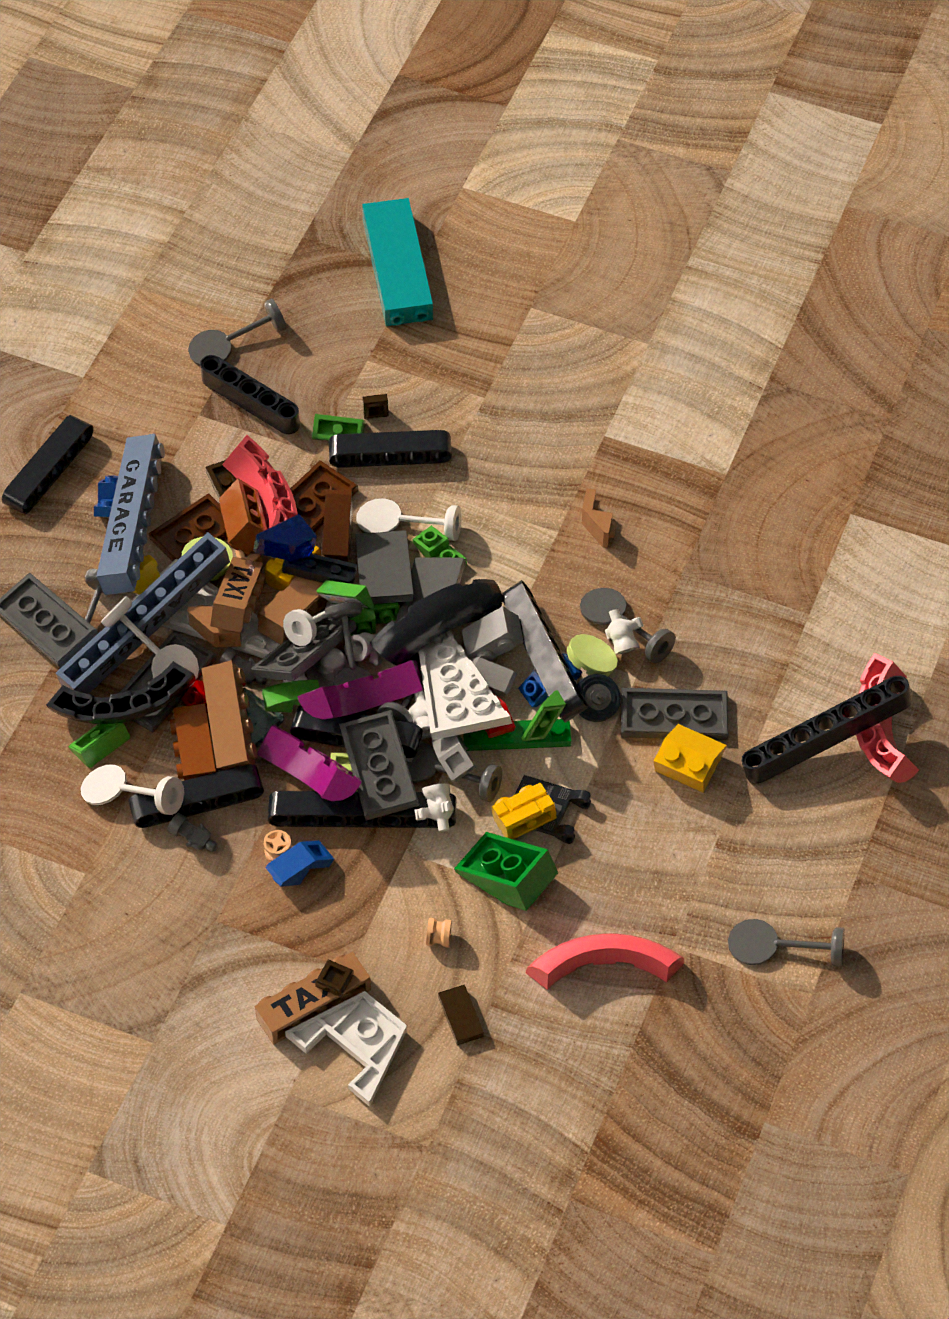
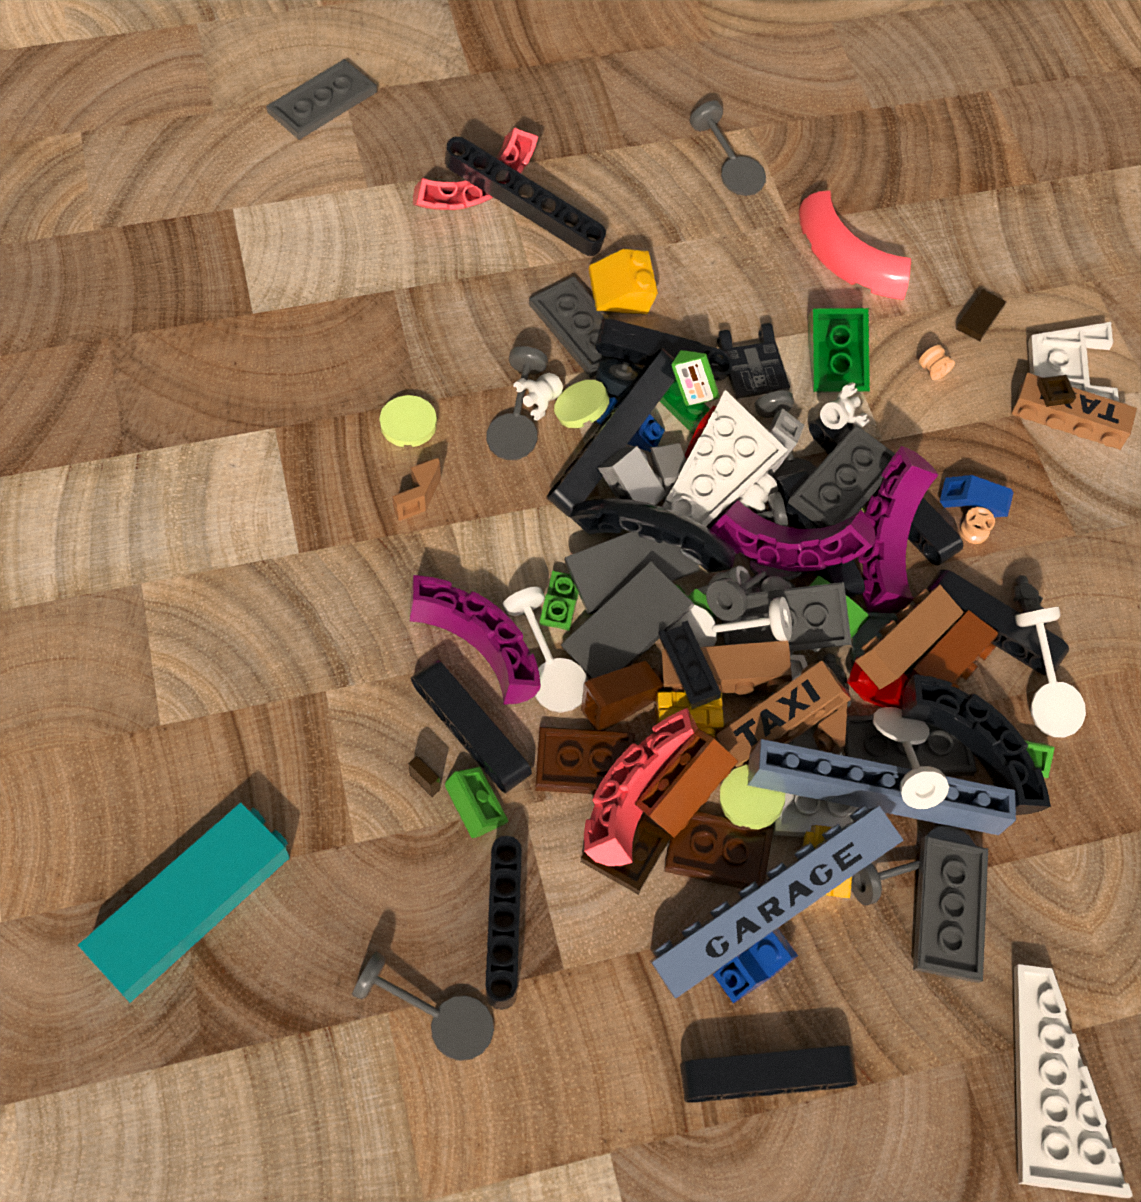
camera: 130 degrees left, 5 degrees up
(287, 540) = (697, 696): clear blue slope -> none
(344, 593) = (707, 613): bright green slope -> none
(449, 490) = (483, 627): none -> magenta brick
(523, 811) = (781, 362): yellow brick -> none
(599, 738) = (639, 344): none -> black piece
(667, 550) = (408, 421): none -> yellowish green tile

